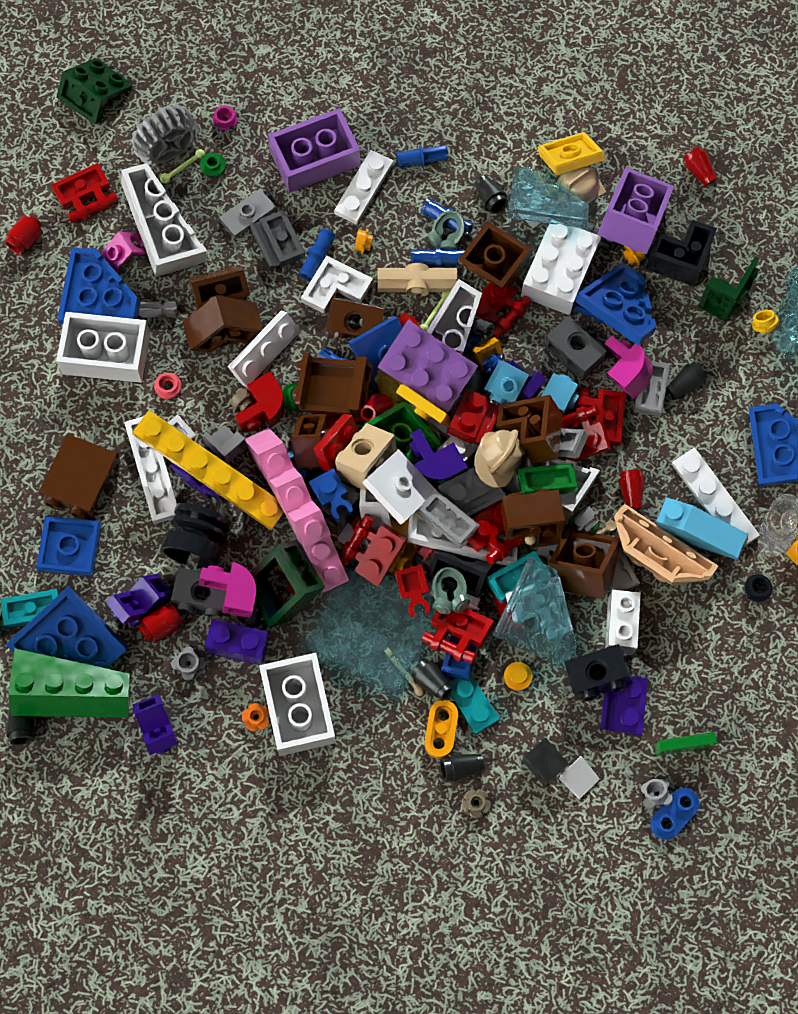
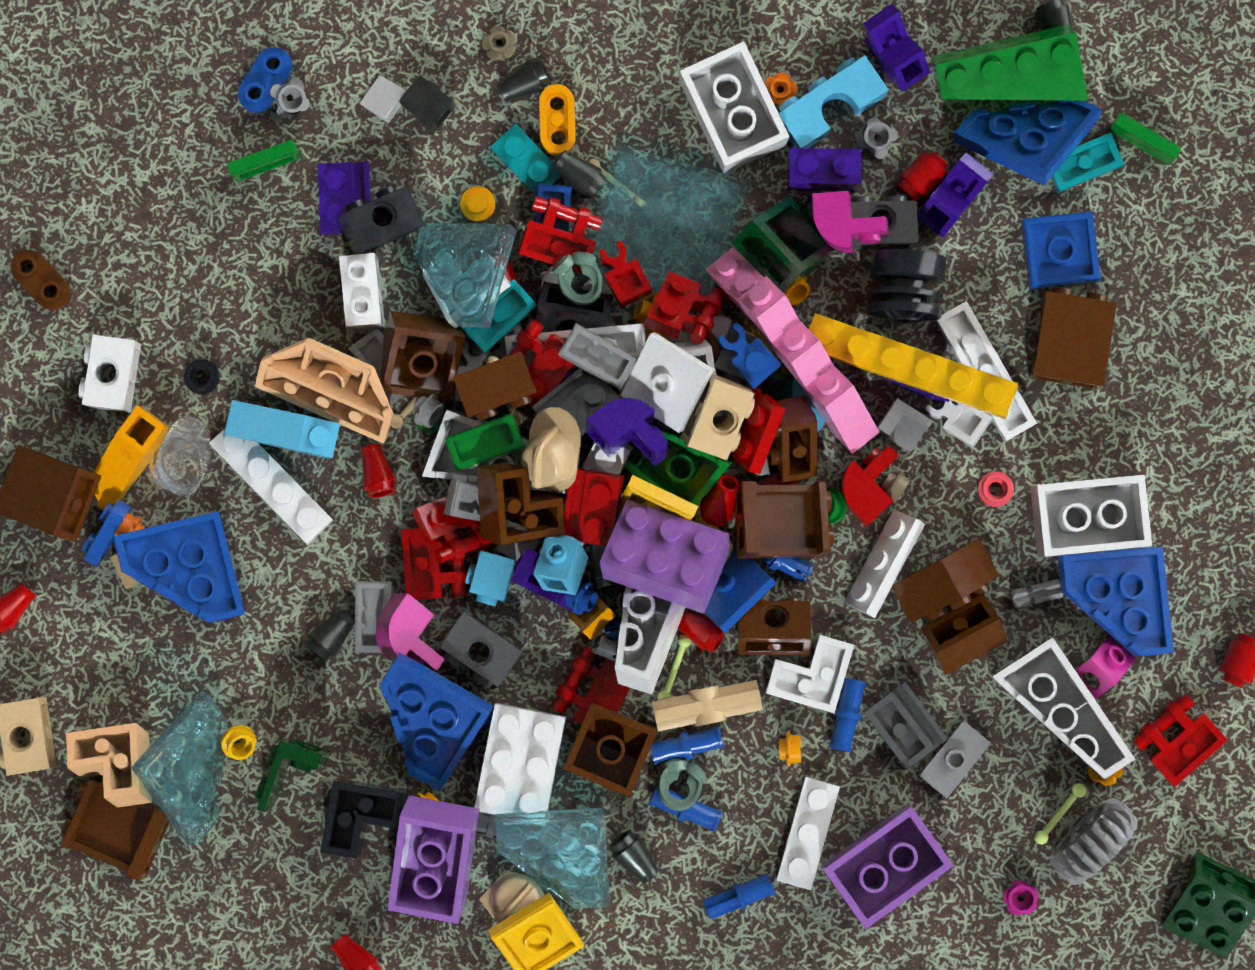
camera: 175 degrees right, 15 degrees up
(212, 171) = (1011, 813): green plate -> none
(242, 689) = (854, 84): none -> medium azure arch

